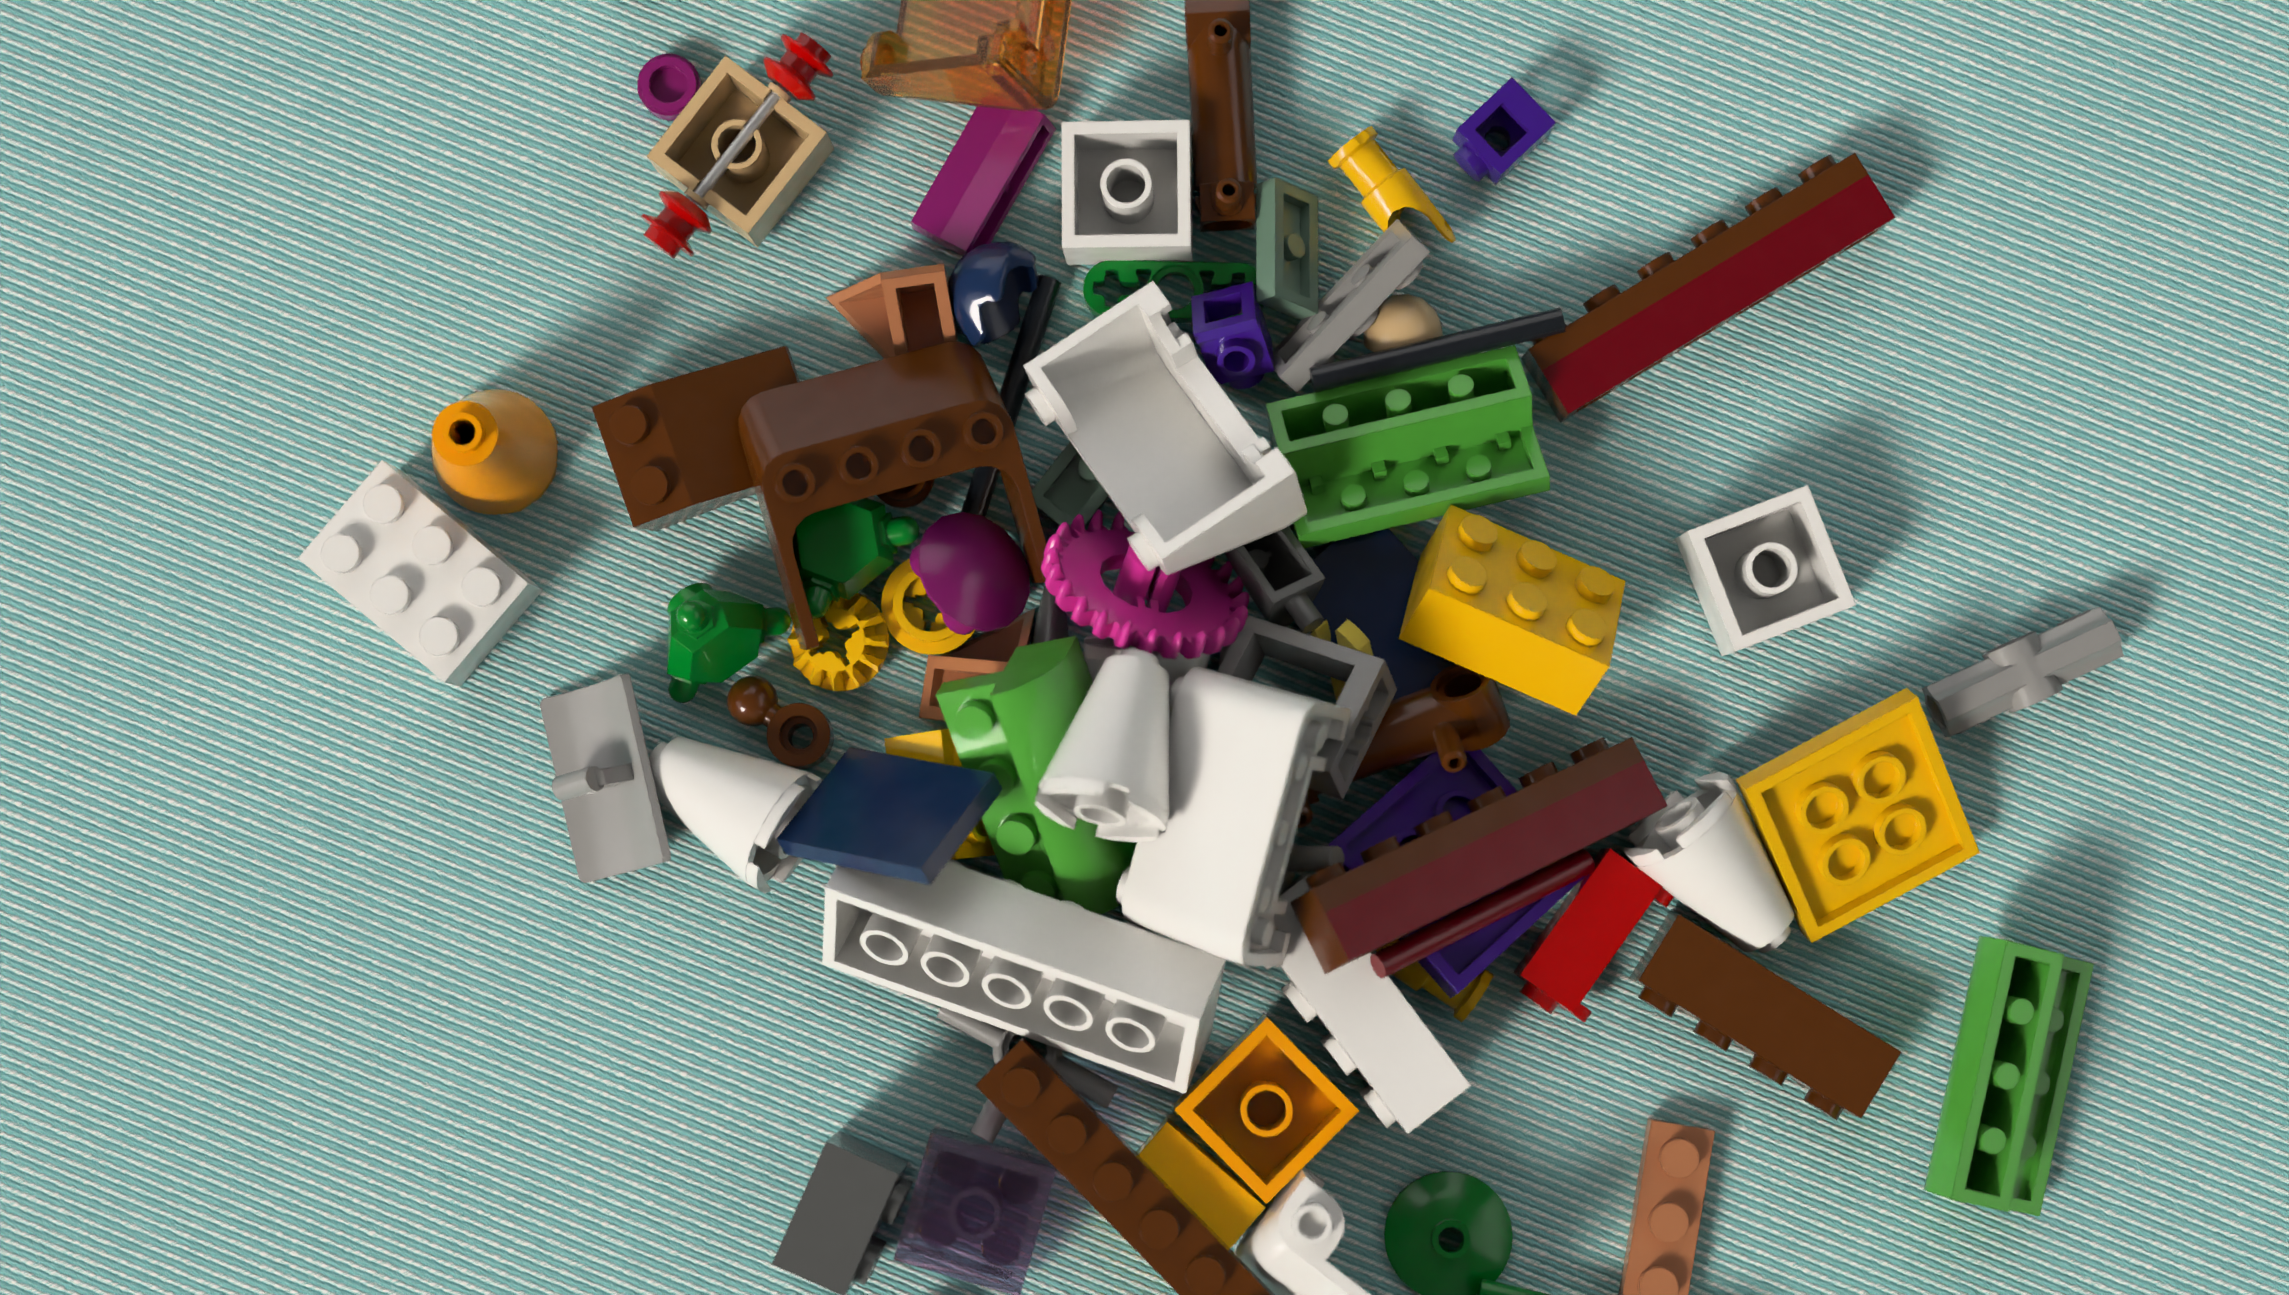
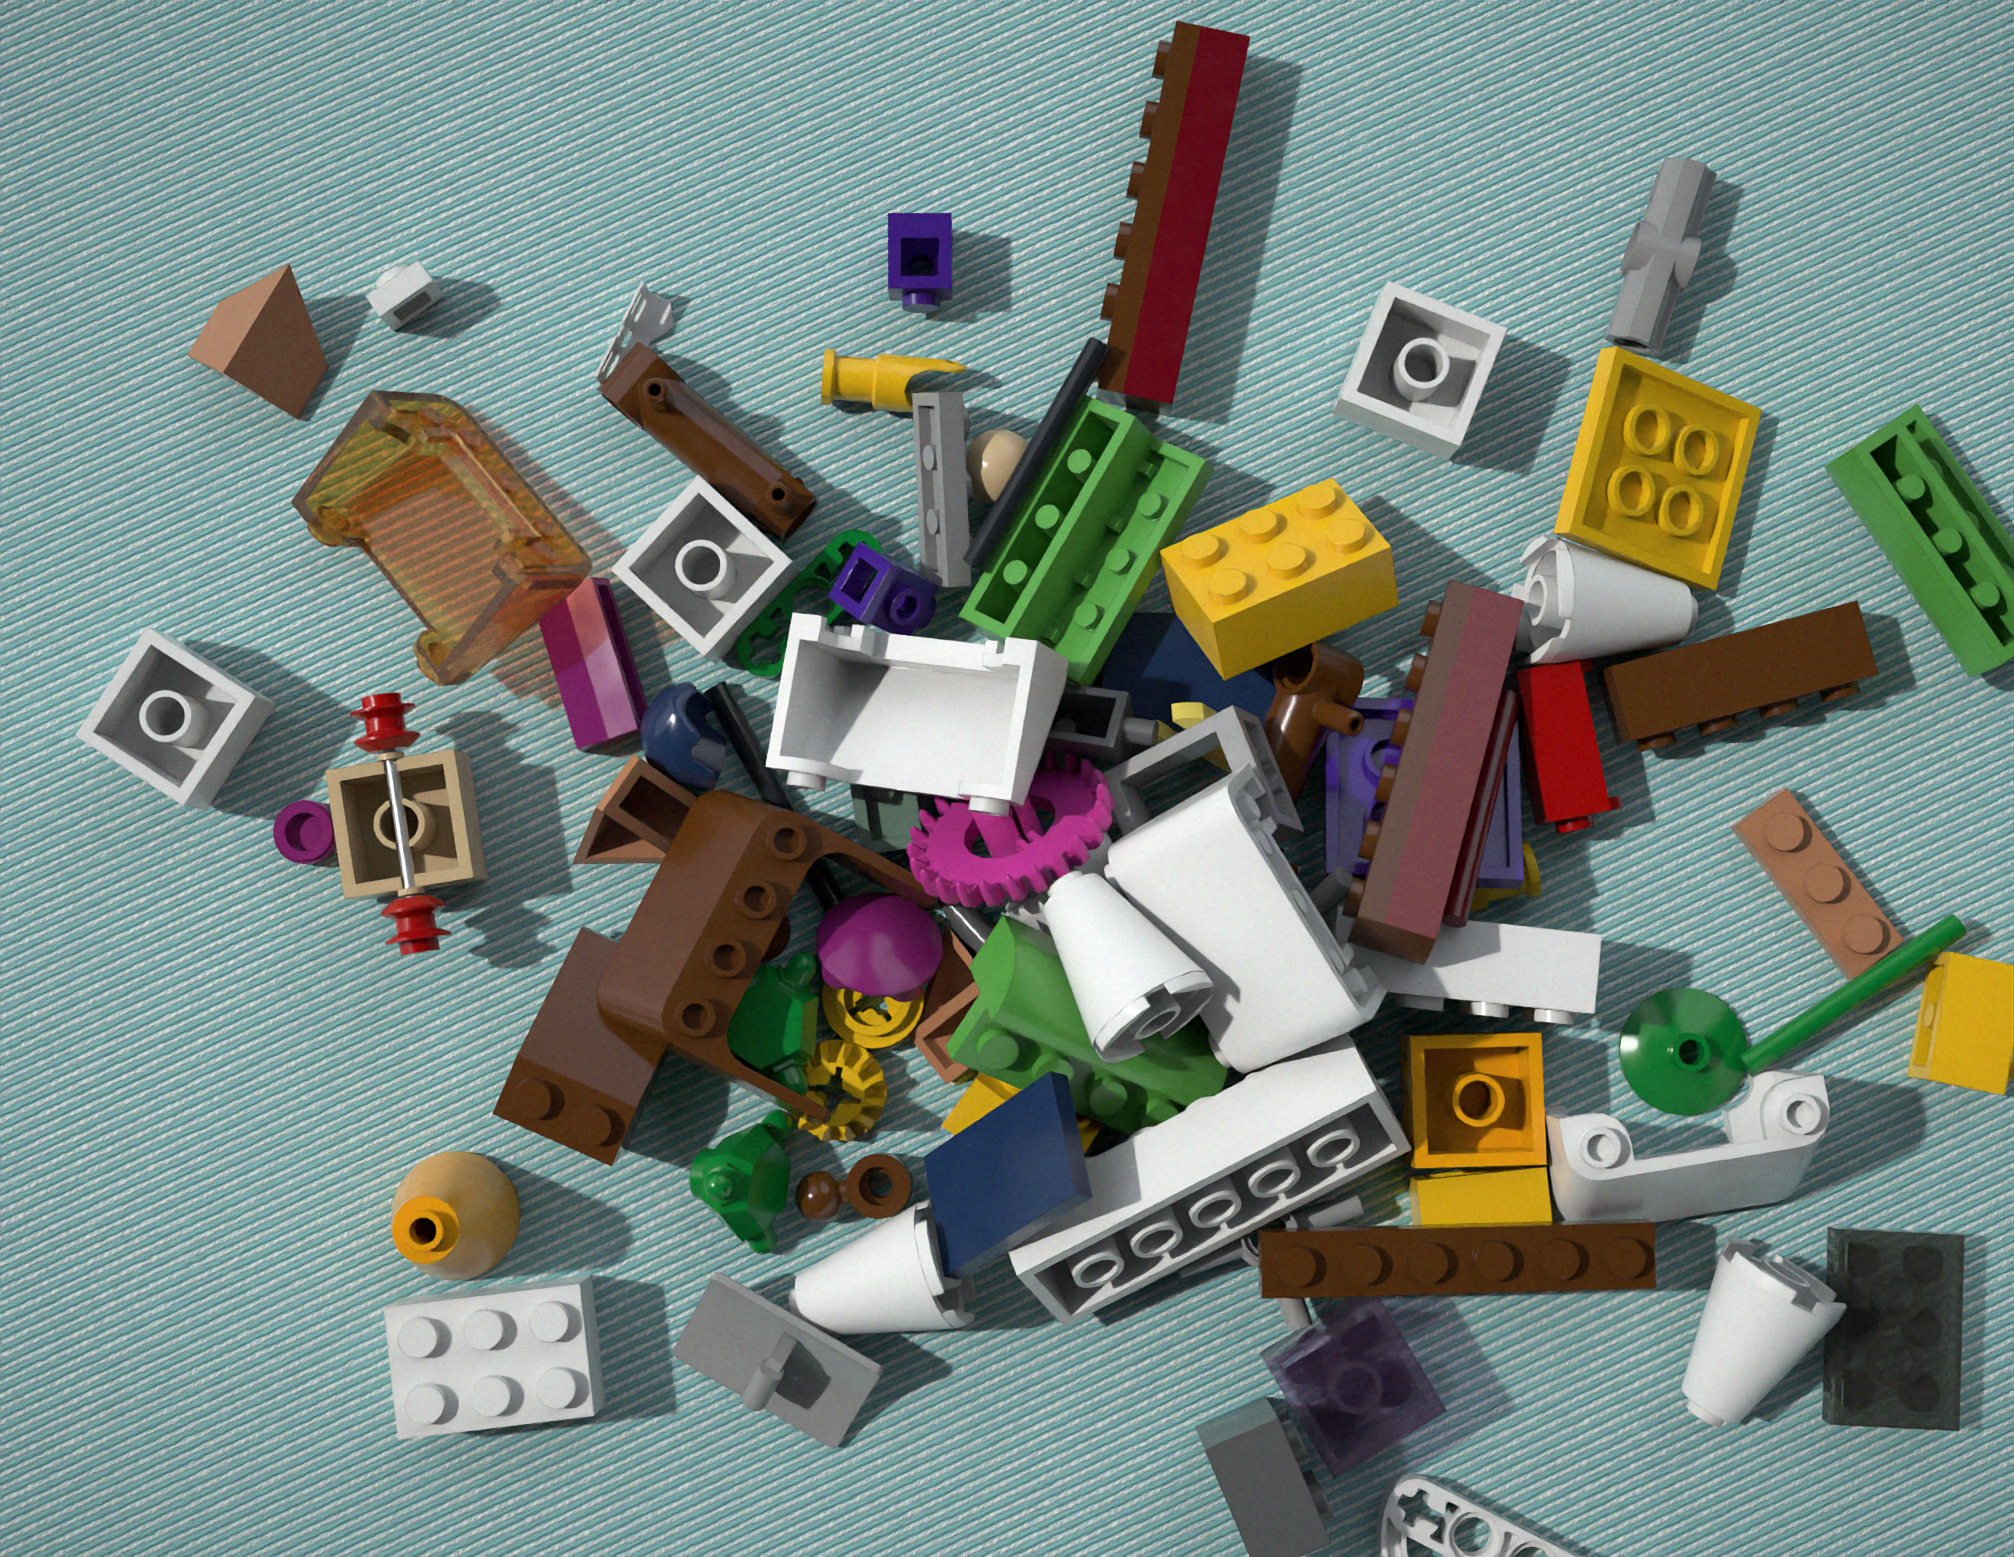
camera: 50 degrees left, 0 degrees up
(1286, 248) = (858, 493): sand green plate -> none

